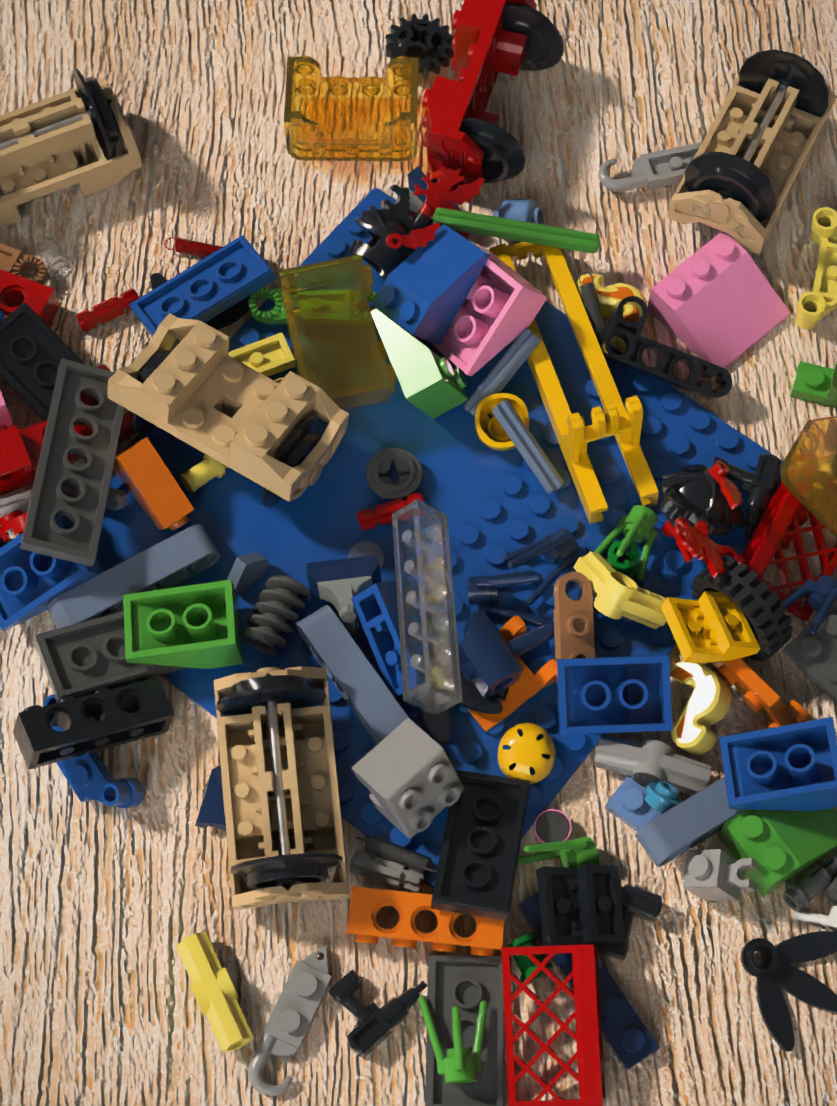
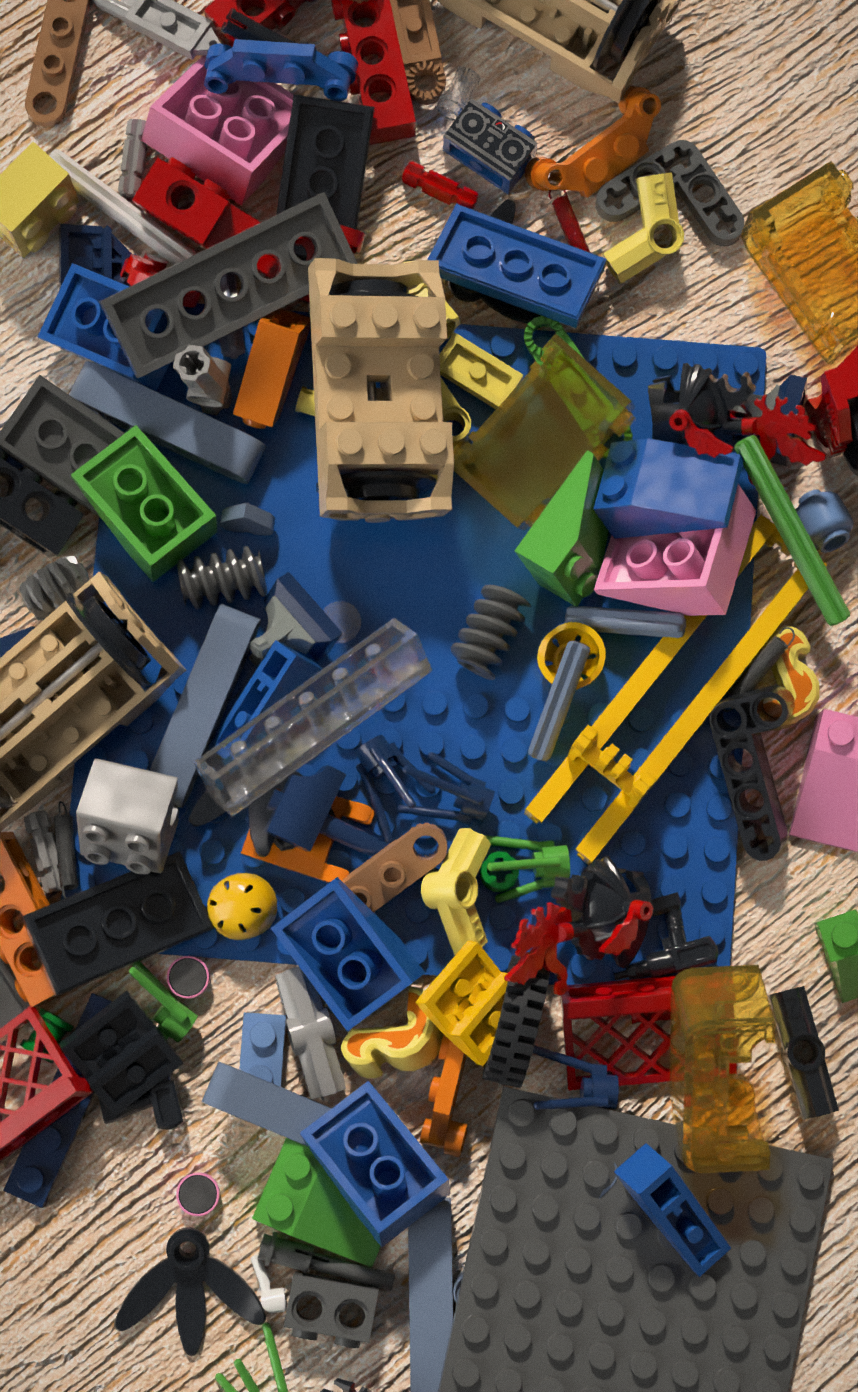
camera: 50 degrees right, 15 degrees up
(107, 260) = (490, 145): none -> brick
(132, 524) = (205, 378): none -> light grey piece
(169, 197) = (605, 154): none -> orange plate
(196, 732) = (47, 587): none -> dark grey gear
(223, 165) = (684, 181): none -> dark grey beam
(235, 187) = (639, 250): none -> light yellow piece
(383, 513) = (406, 612): red axle -> none
(404, 463) = (450, 569): dark grey gear -> none
(445, 462) = (488, 629): none -> dark grey piece
(662, 796) = (278, 1063): dark azure plate -> none
(717, 875) = (234, 1161): light grey brick -> none
(721, 925) = (198, 1194): none -> flat silver tile

